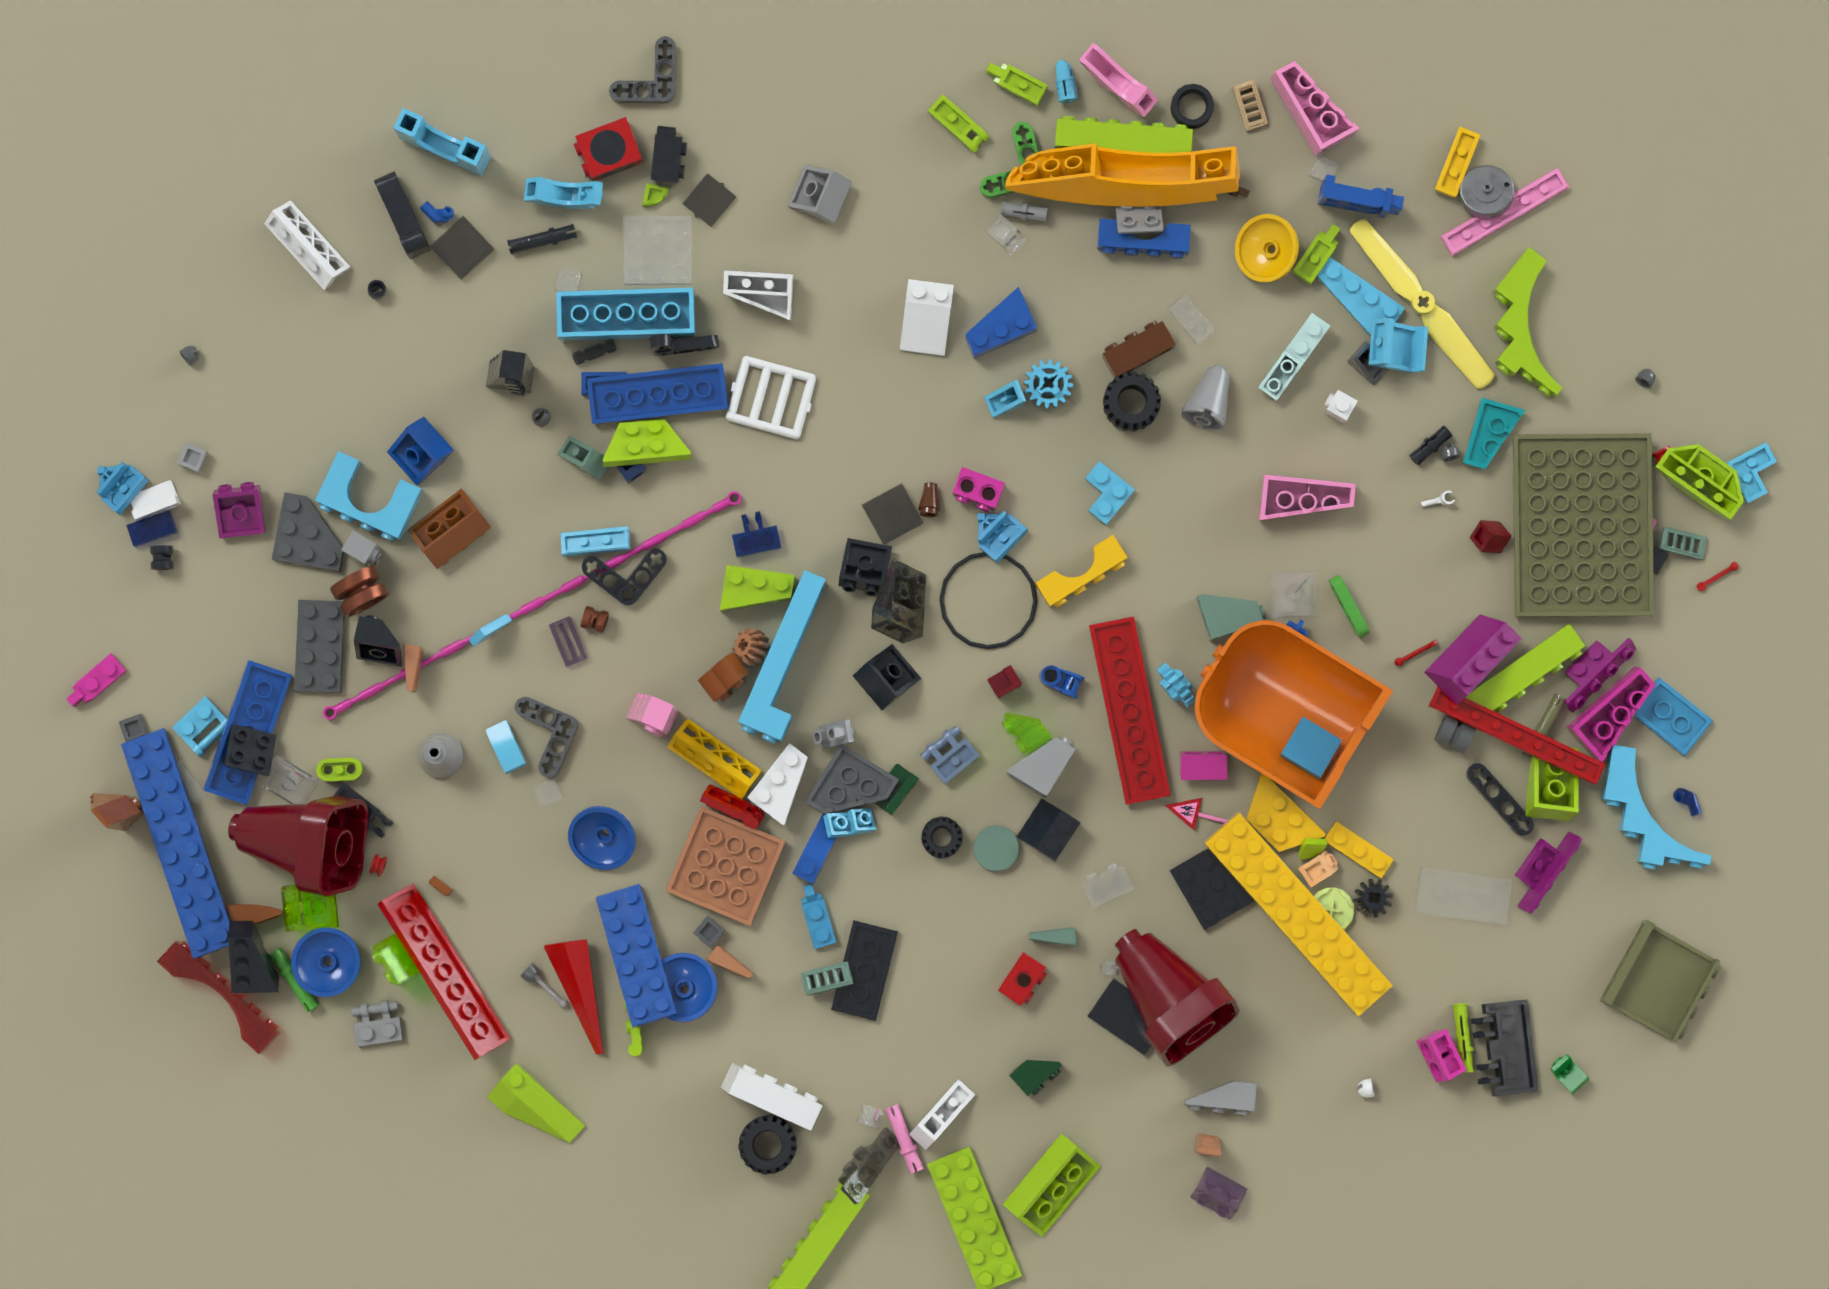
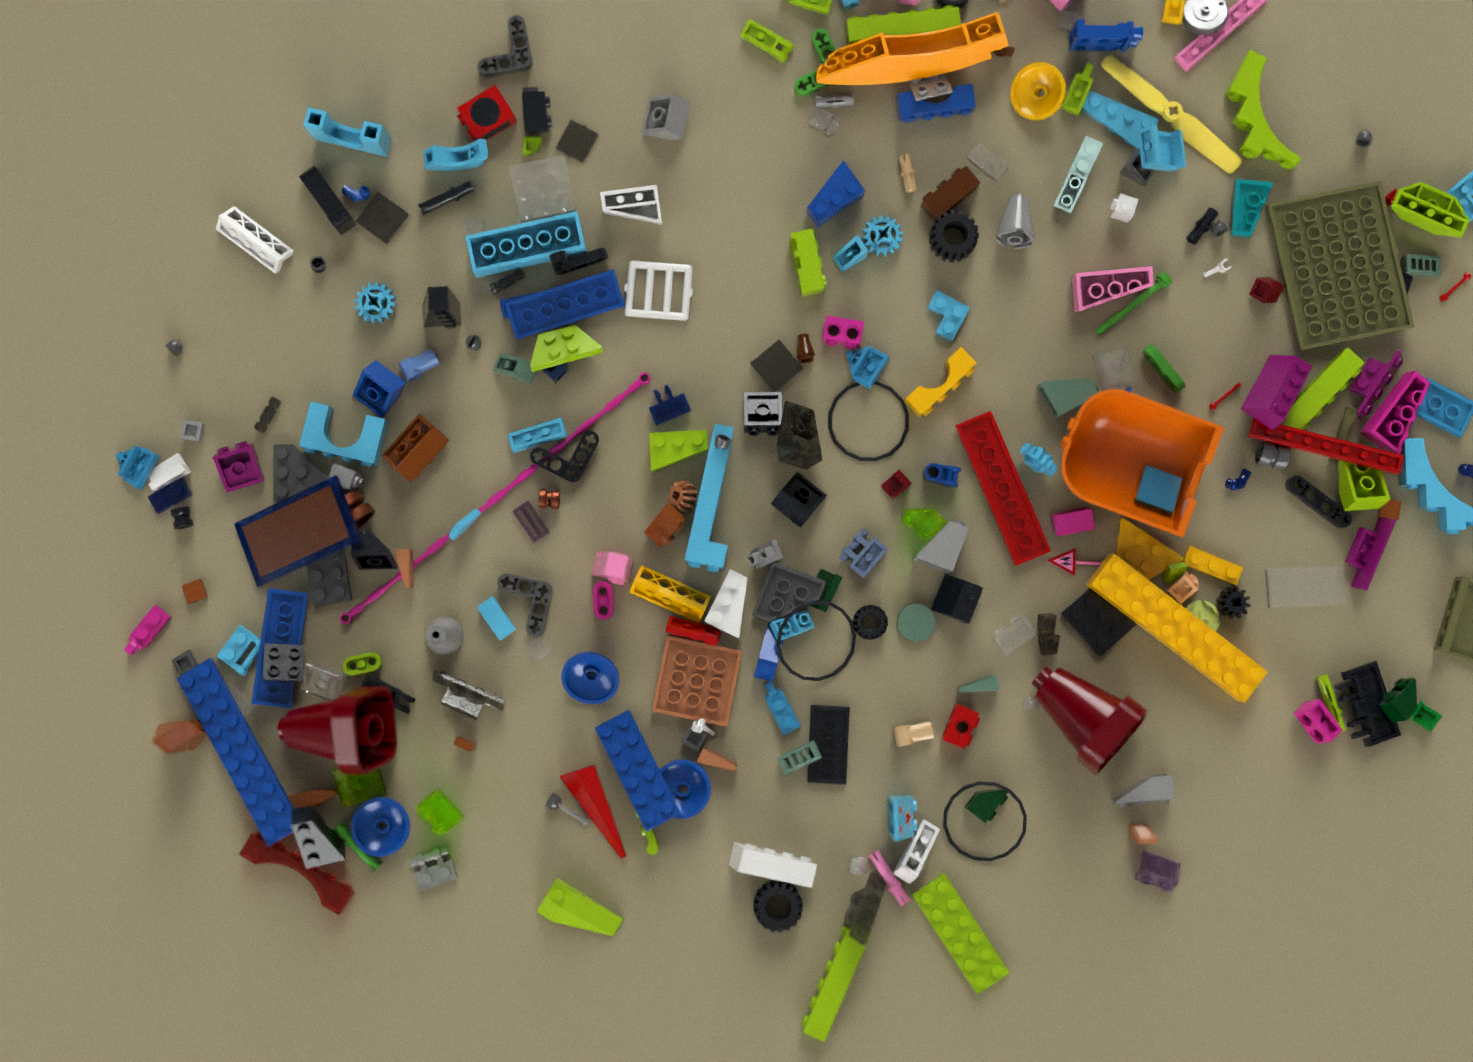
camera: 15 degrees left, 0 degrees up
(160, 646) = (194, 591): none -> dark orange tile
(283, 455) = (267, 414): none -> clear smoke axle
(294, 600) = (297, 531): none -> reddish brown door
(378, 865) = (409, 736): red bush -> none
(426, 353) = (381, 298): none -> medium azure gear
(443, 971) = (480, 815): red plate -> none
(452, 832) = (465, 698): none -> clear smoke bracket
(466, 432) = (415, 366): none -> medium blue piece
(633, 750) = (603, 600): none -> dark pink plate
(718, 919) = (700, 726): none -> white hand
(808, 593) = (722, 441): none -> dark grey hinge
(874, 891) = (838, 669): none -> black piece
(926, 317) = (772, 200): white slope -> none
(932, 1070) = (901, 817): none -> medium azure slope
(952, 400) = (807, 263): none -> lime wedge
(959, 976) = (909, 734): none -> tan piece
(1023, 1049) = (984, 858): none -> black piece
(1051, 1185) = (1018, 892): lime slope -> none
(1093, 315) = (907, 173): none -> tan axle
(1120, 1016) = (1047, 740): black tile -> none
(1145, 894) = (1047, 639): none -> clear smoke slope
(1366, 1088) = (1260, 760): white hinge -> none
(1368, 502) = (1163, 281): none -> bright green piece
(1409, 759) = (1238, 483): none -> clear blue arm
(1544, 1051) = (1401, 700): none -> dark green slope
(1582, 825) = (1390, 510): none -> dark orange tile

